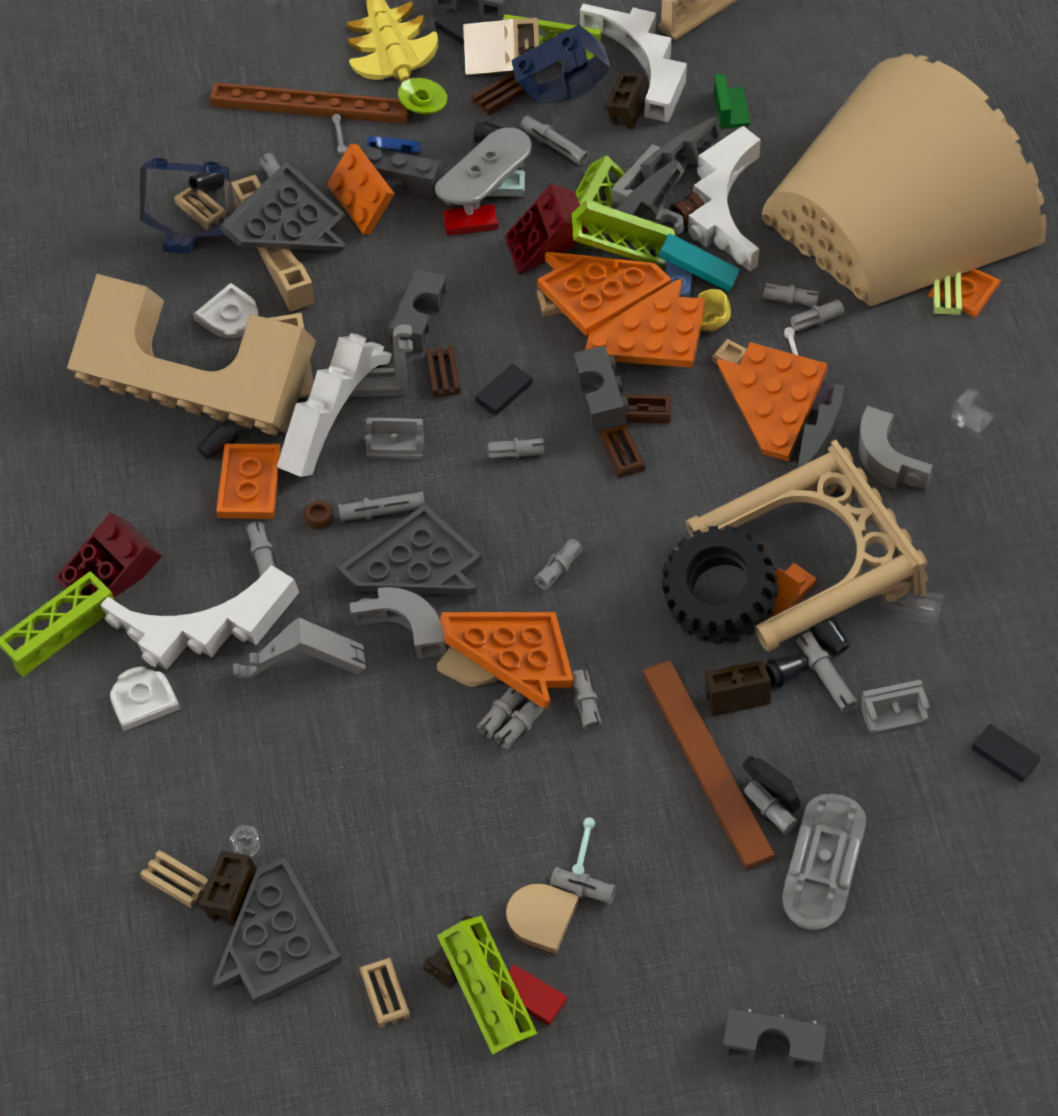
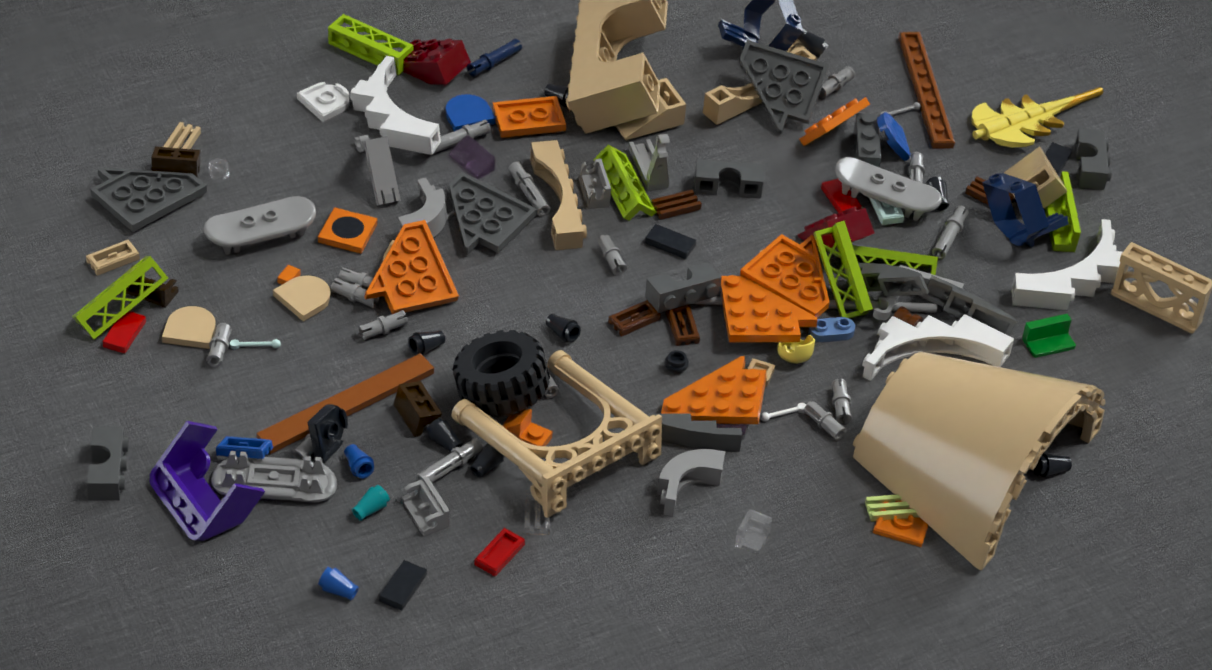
camera: 70 degrees right, 10 degrees down
(128, 502) = (488, 61): none -> dark blue pin
(217, 544) = (468, 110): none -> blue tile
(227, 312) = (690, 81): white tile -> none
(306, 553) = (473, 157): none -> clear purple slope
(318, 514) = (512, 156): reddish brown tile -> none
(330, 390) = (581, 126): white arch -> none
(345, 476) = (548, 164): none -> tan arch
(379, 800) = (260, 223): none -> light grey piece
(402, 712) = (347, 230): none -> orange tile
(422, 96) = (959, 145): lime dish -> none
(433, 408) = (624, 184): none -> lime fence
(446, 143) = (916, 169): none -> light grey axle
(469, 790) = (287, 274): none -> orange piece
(511, 778) = (304, 295): none -> tan tile
(558, 564) = (506, 293): light grey pin -> none
(625, 662) = (425, 341): none -> black cone
(627, 98) = (1008, 263): dark brown hinge -> none
(628, 519) = (565, 328): none -> black cone
(699, 262) = (846, 333): teal tile -> none
(703, 425) = (676, 361): none -> black plate
(778, 882) = (253, 447): none -> blue tile
(811, 763) = (359, 462): none -> blue cone
(850, 951) = (186, 493): none -> dark purple windscreen
(879, 761) = (372, 501): none -> teal cone
(965, 650) = (499, 552): none -> red tile
(1000, 818) = (337, 583): none -> blue cone

